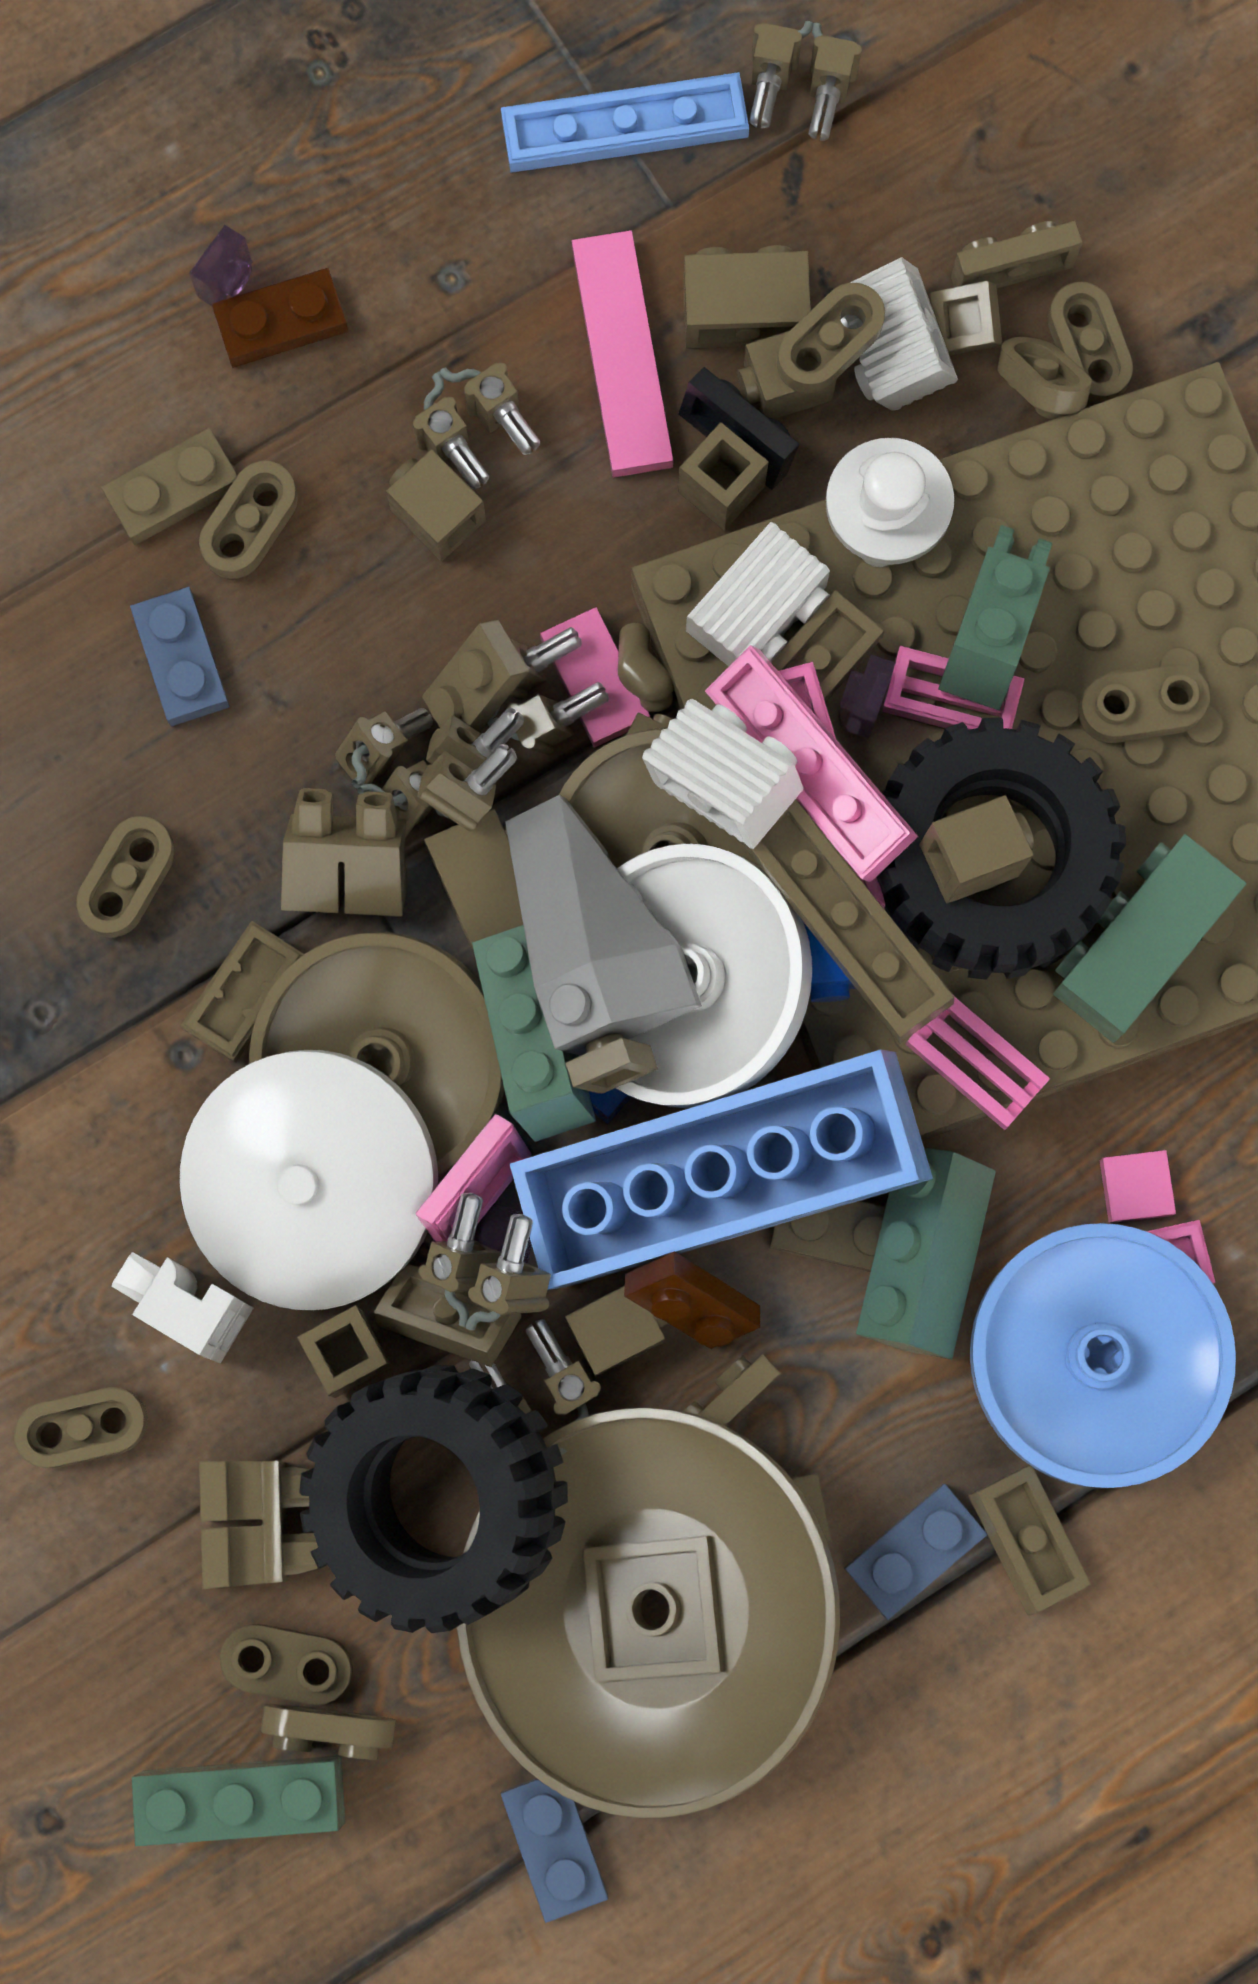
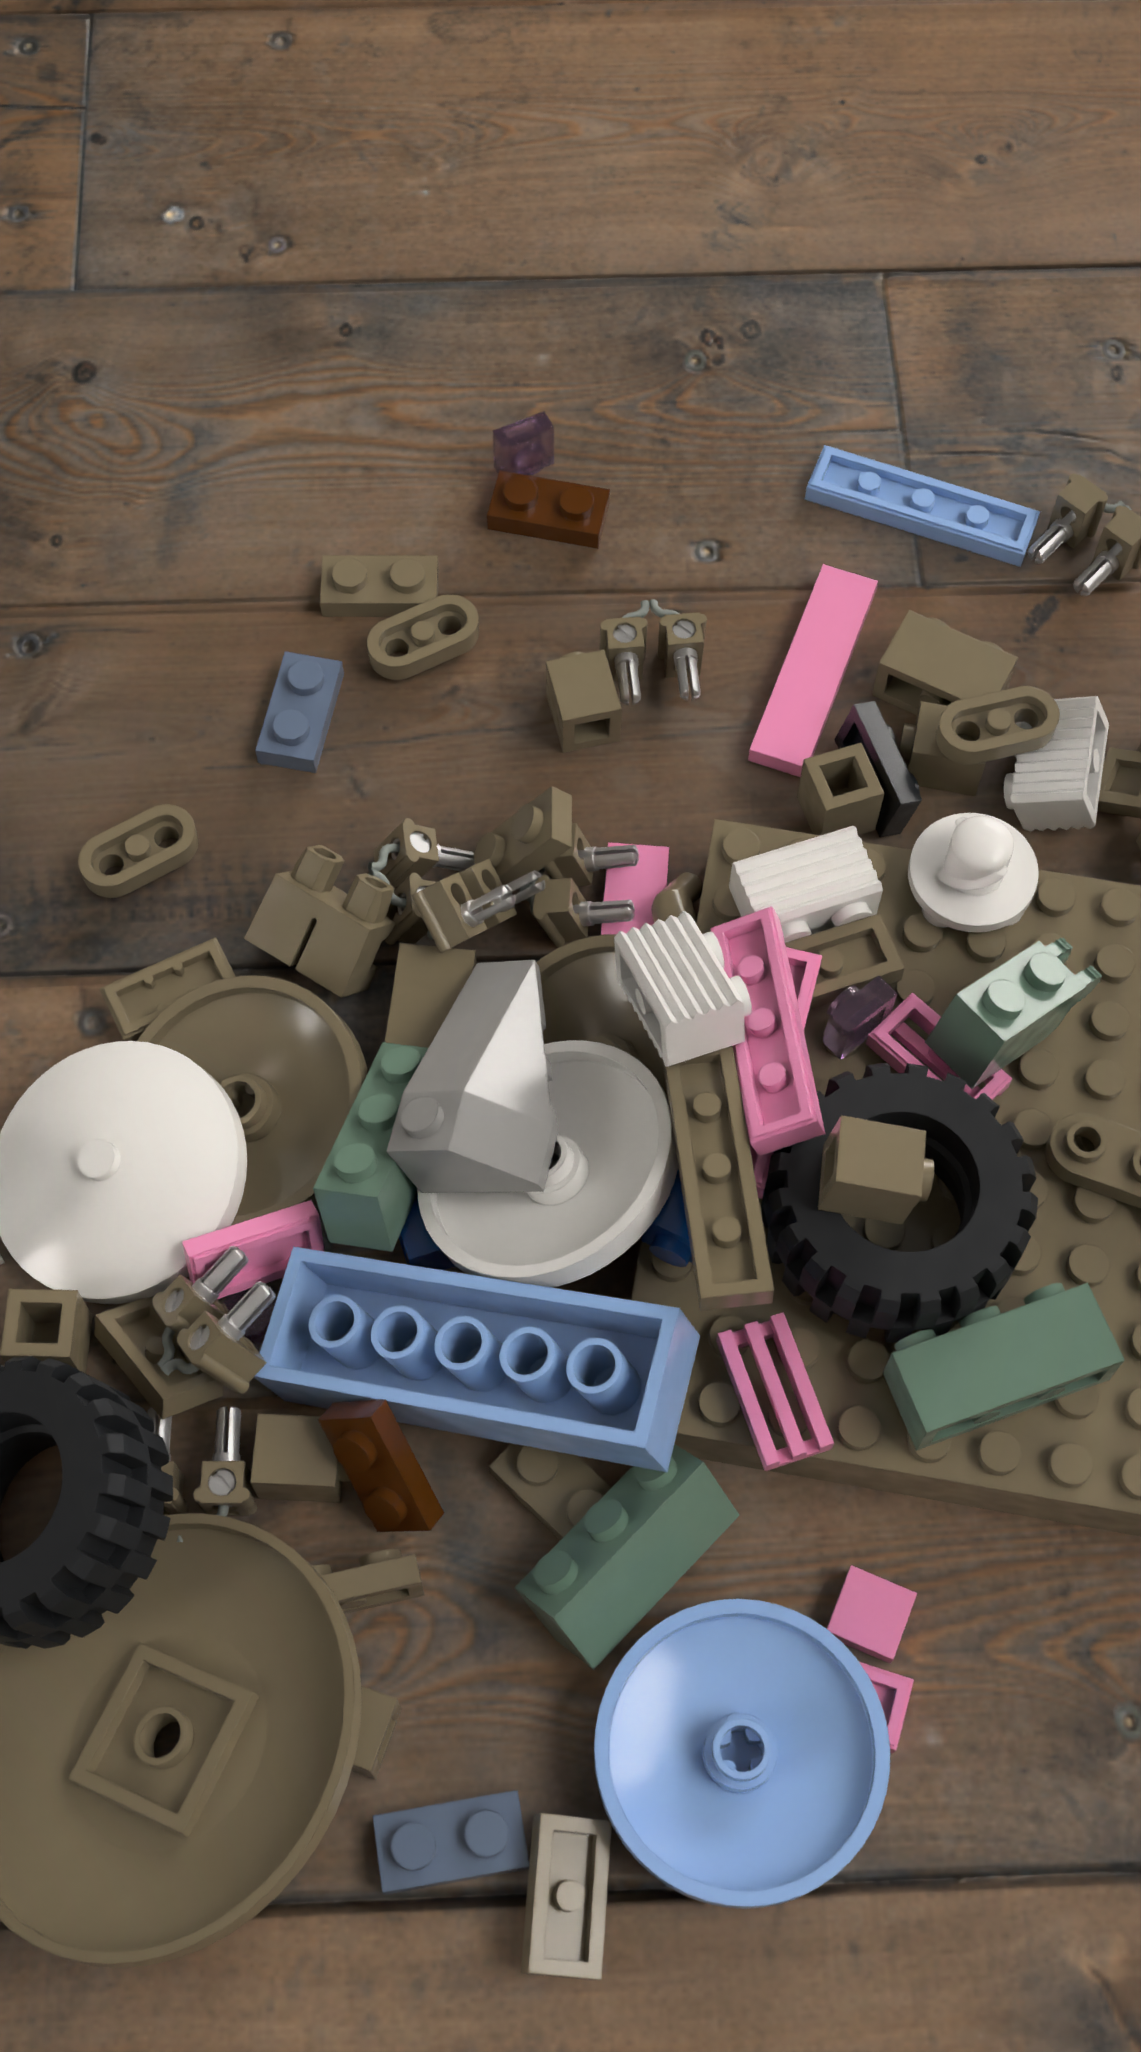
camera: 30 degrees right, 15 degrees down
(610, 1063) = (430, 1199): dark tan plate -> none

